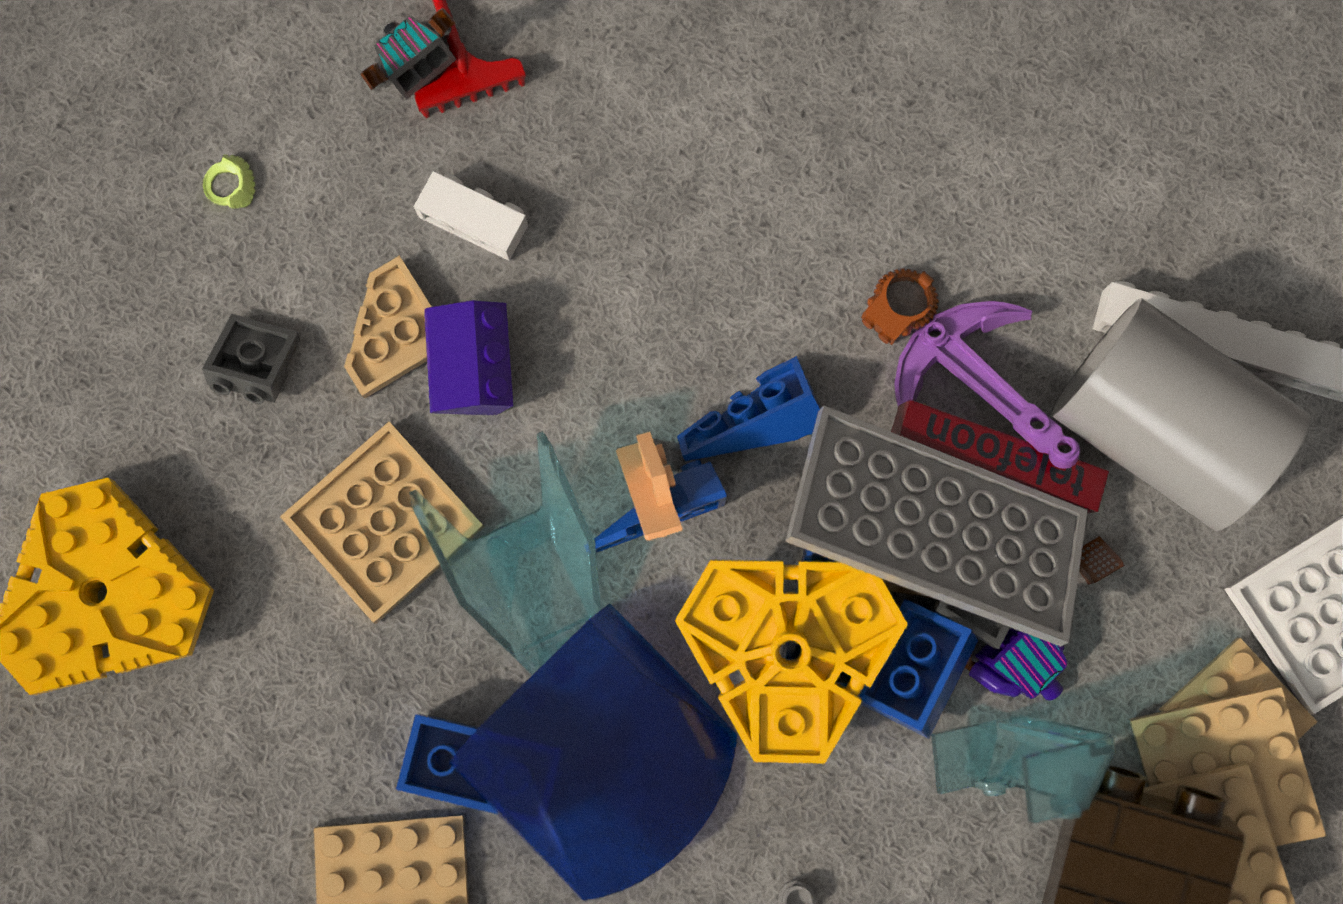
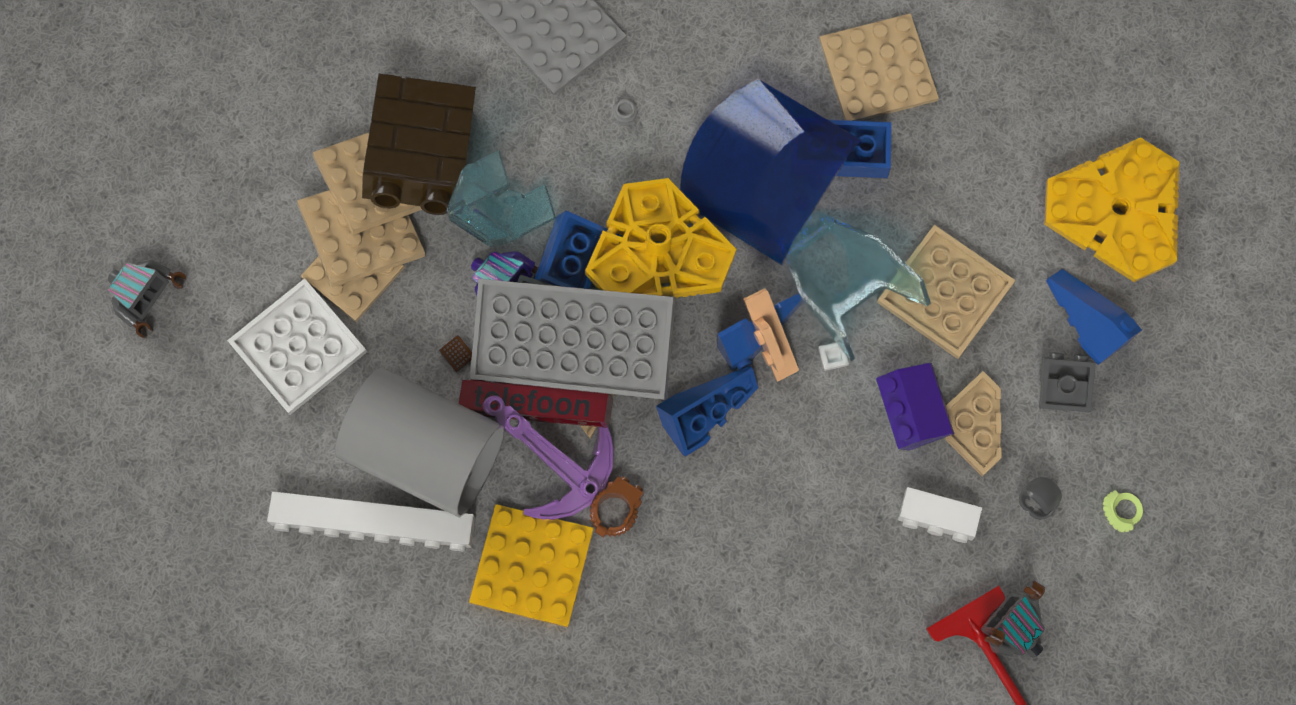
camera: 175 degrees right, 5 degrees down
(181, 434) = (1099, 322): none -> blue wedge
(329, 210) = (1045, 493): none -> dark grey helmet
(570, 458) = (832, 356): none -> white tile
(1026, 250) = (531, 566): none -> yellow plate

